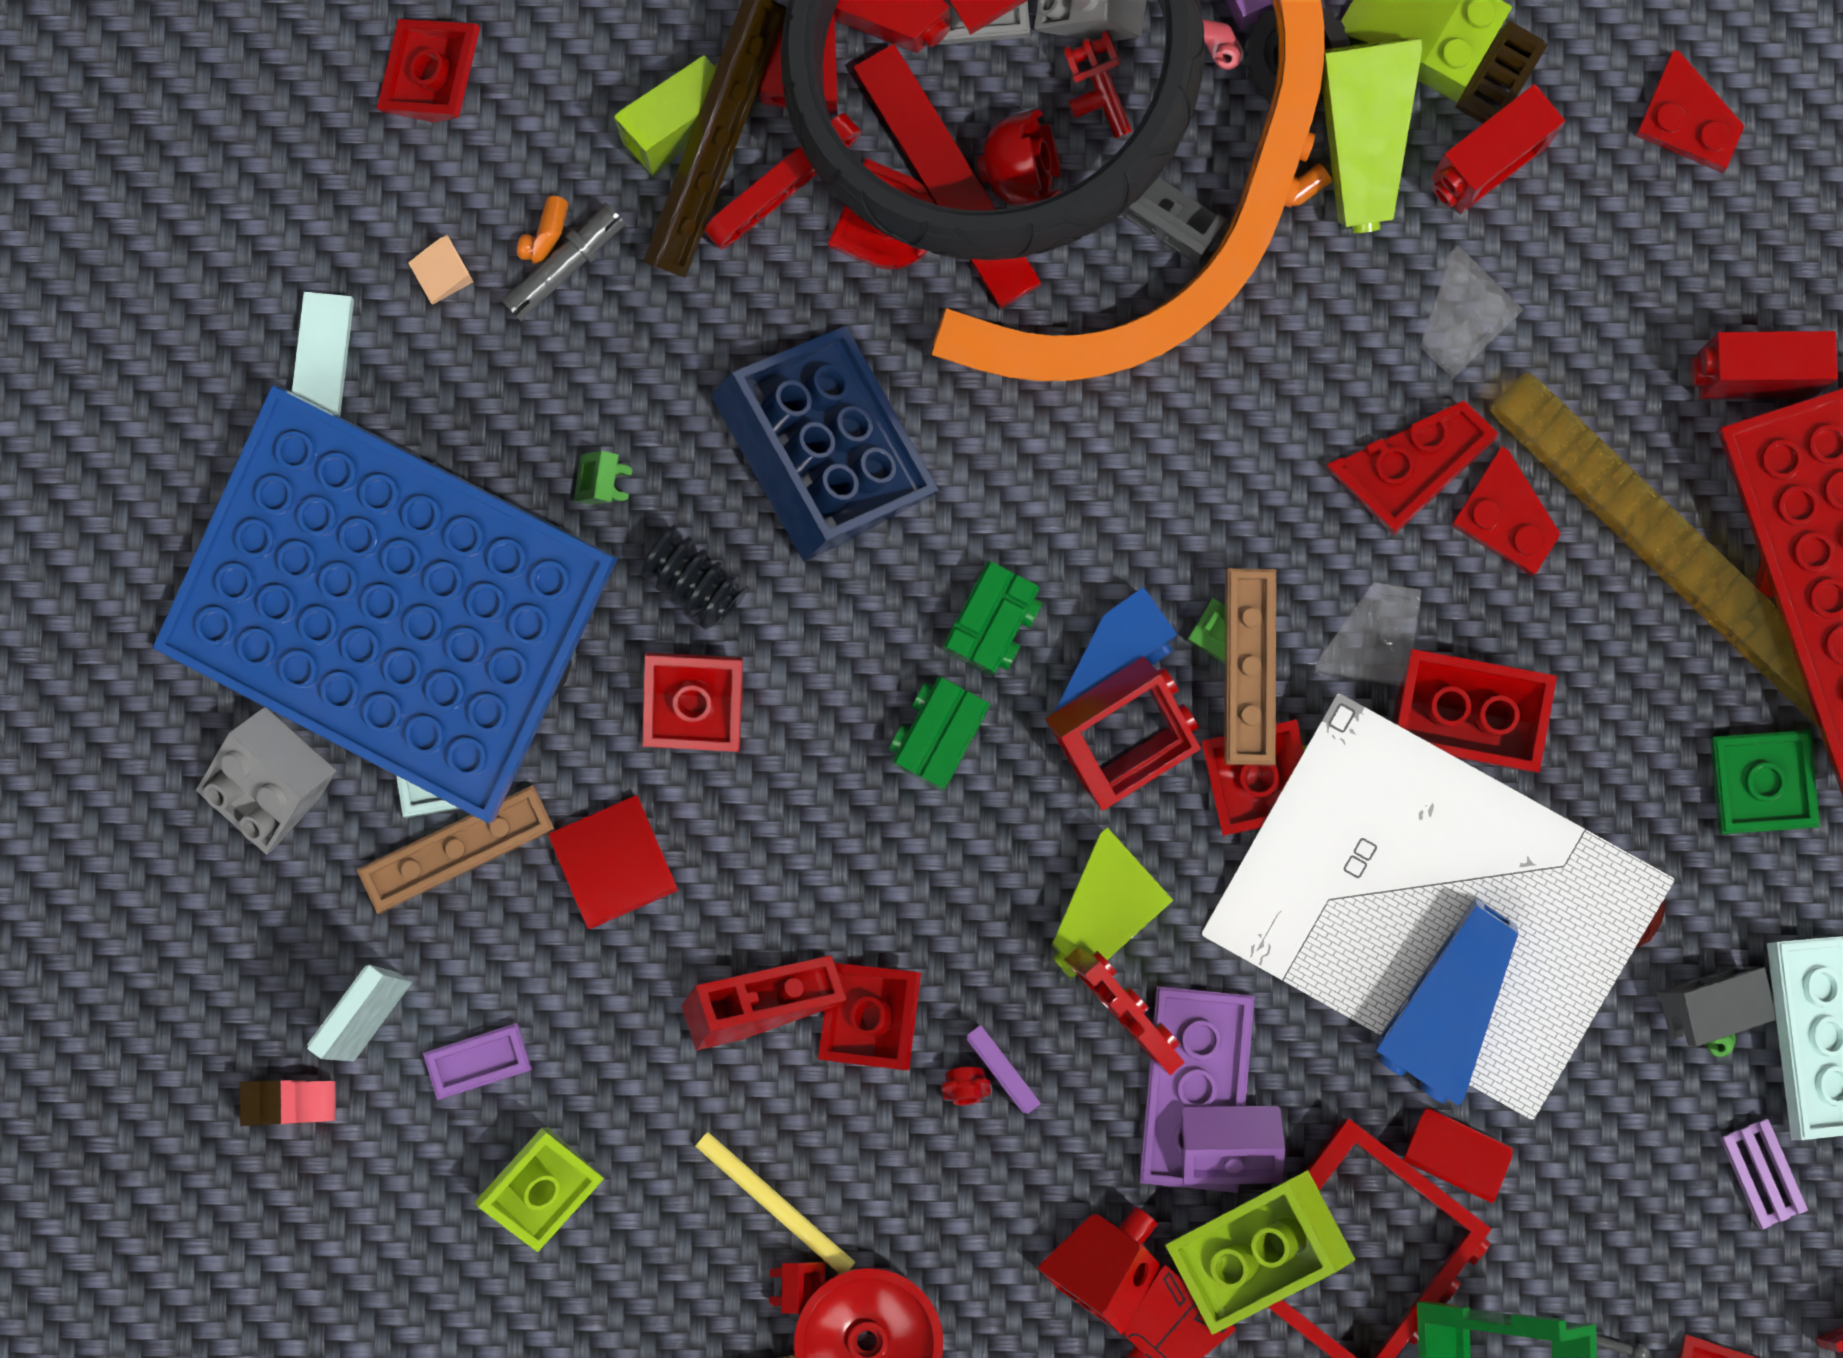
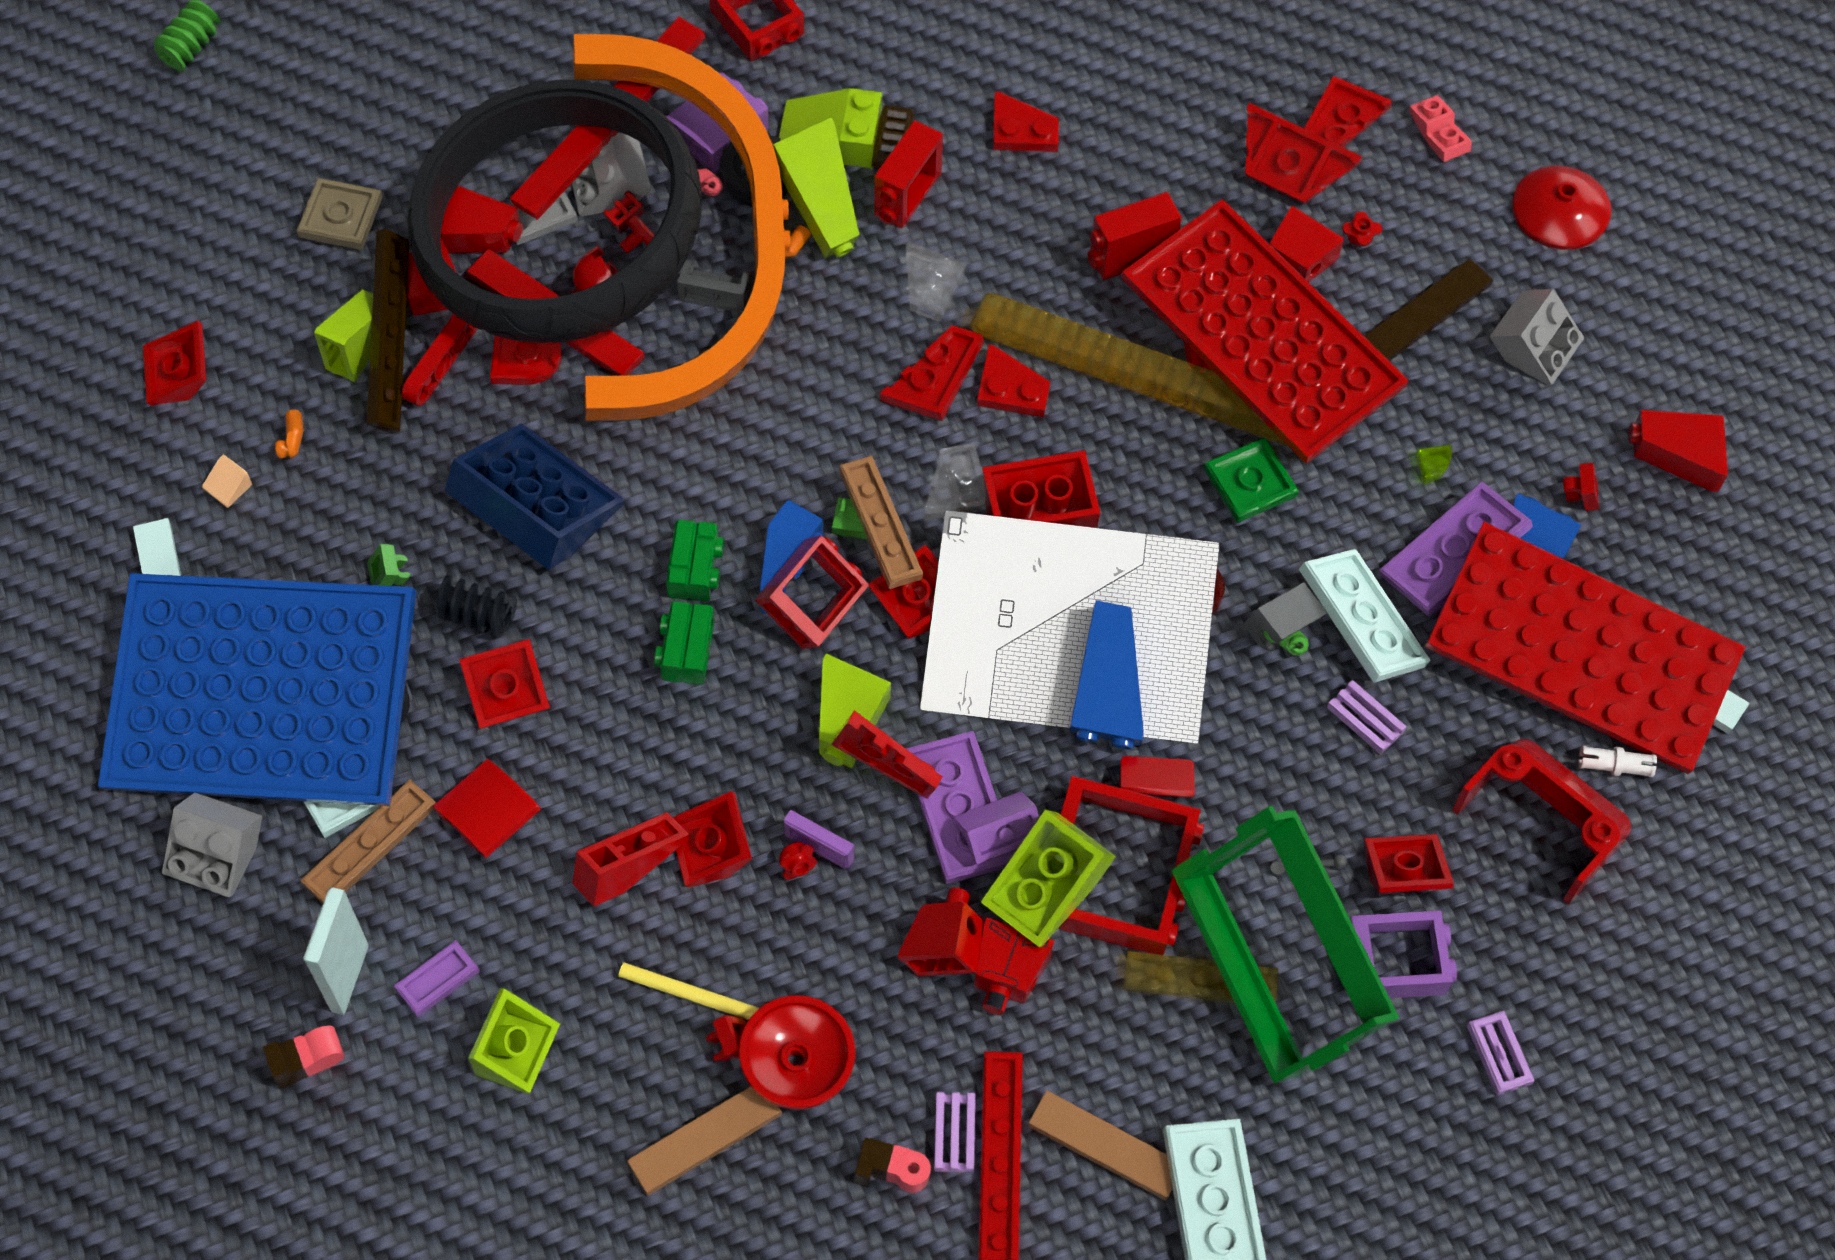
camera: 25 degrees left, 20 degrees down
(563, 261) = (318, 436): dark grey pin -> none

